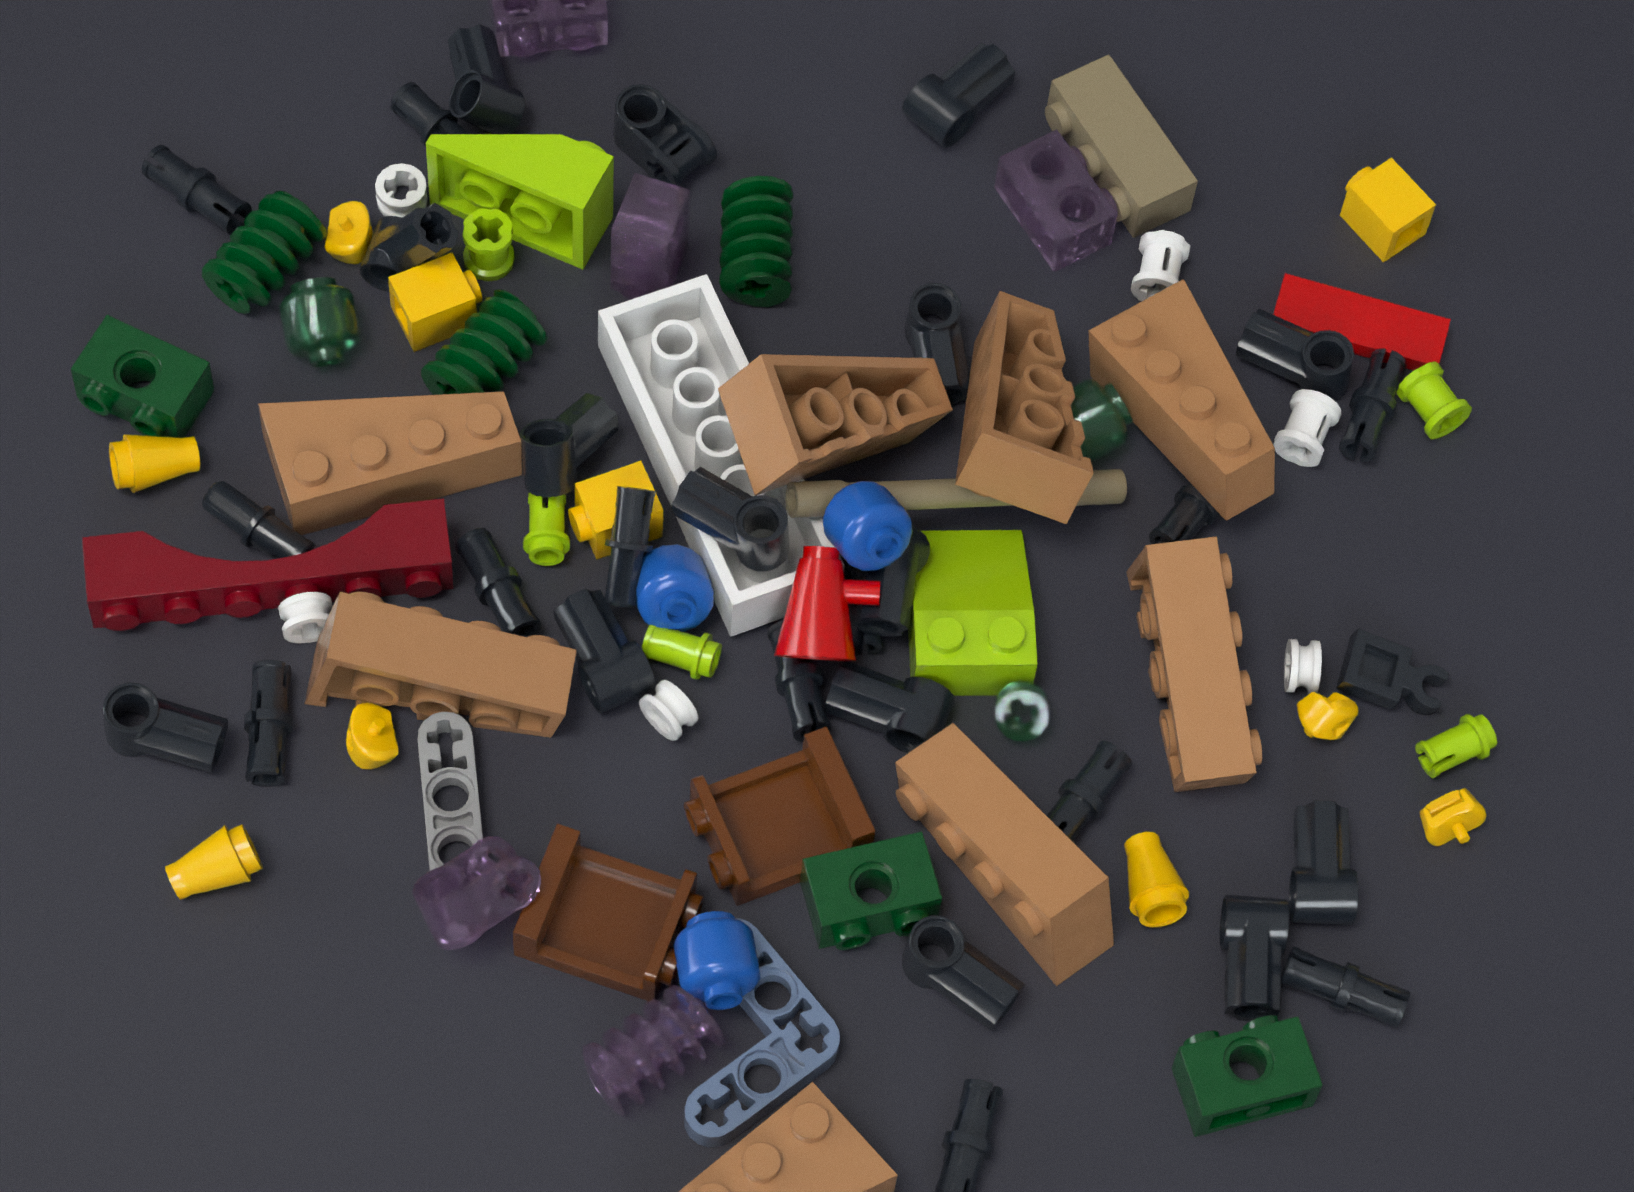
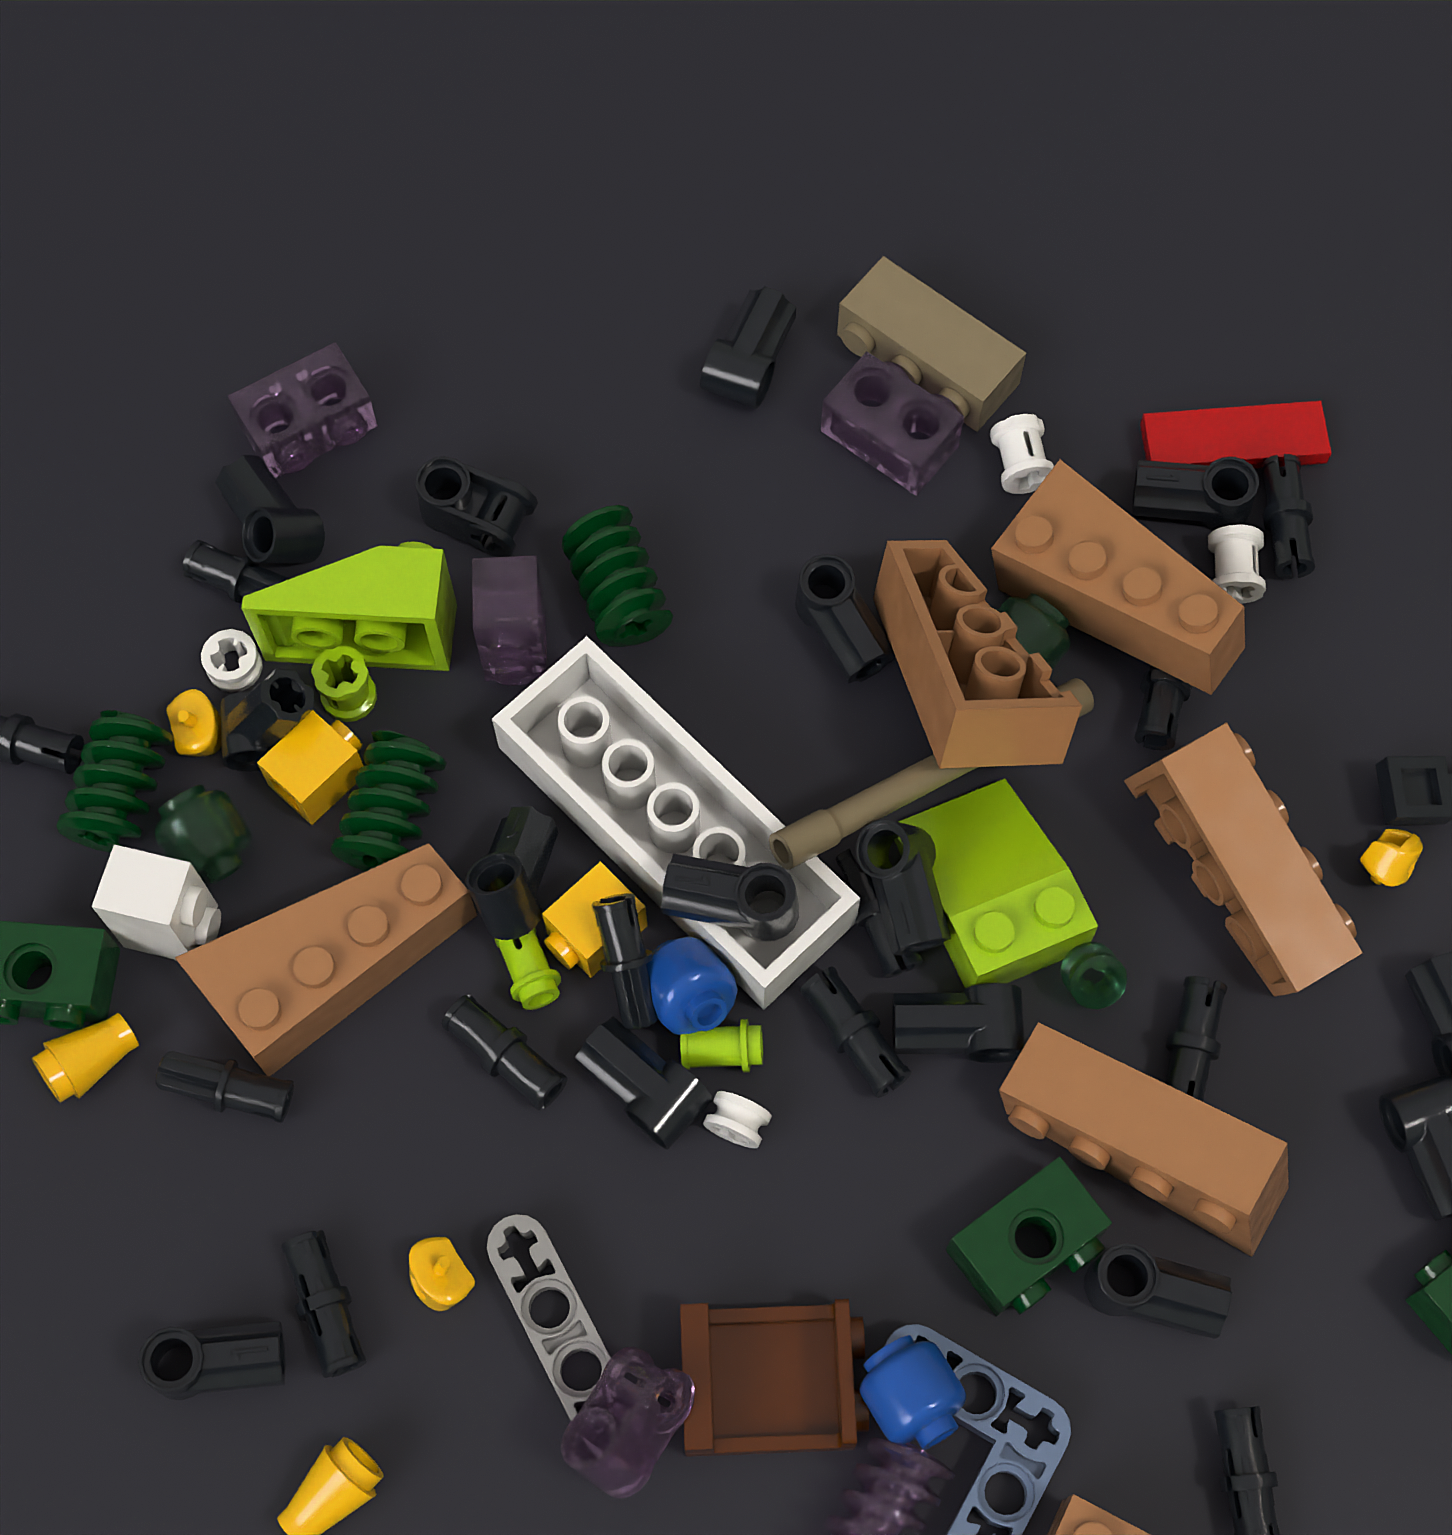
camera: 15 degrees left, 5 degrees up
(144, 580) = (127, 1196): dark red arch -> none
(258, 356) = (155, 903): none -> white brick
(304, 616) = (318, 1168): white bush -> none
(440, 665) = (483, 1171): medium nougat wedge -> none
(776, 816) = (901, 1194): reddish brown panel -> none
(818, 610) = (856, 962): red piece -> none
(827, 411) = (769, 745): medium nougat wedge -> none
(867, 525) = (874, 851): blue head -> none
(1153, 883) = (1304, 1107): yellow cone -> none
(1302, 666) = (1345, 815): white bush -> none
(1386, 208) = (1210, 312): yellow brick -> none
(1433, 400) = (1343, 489): lime bush -> none

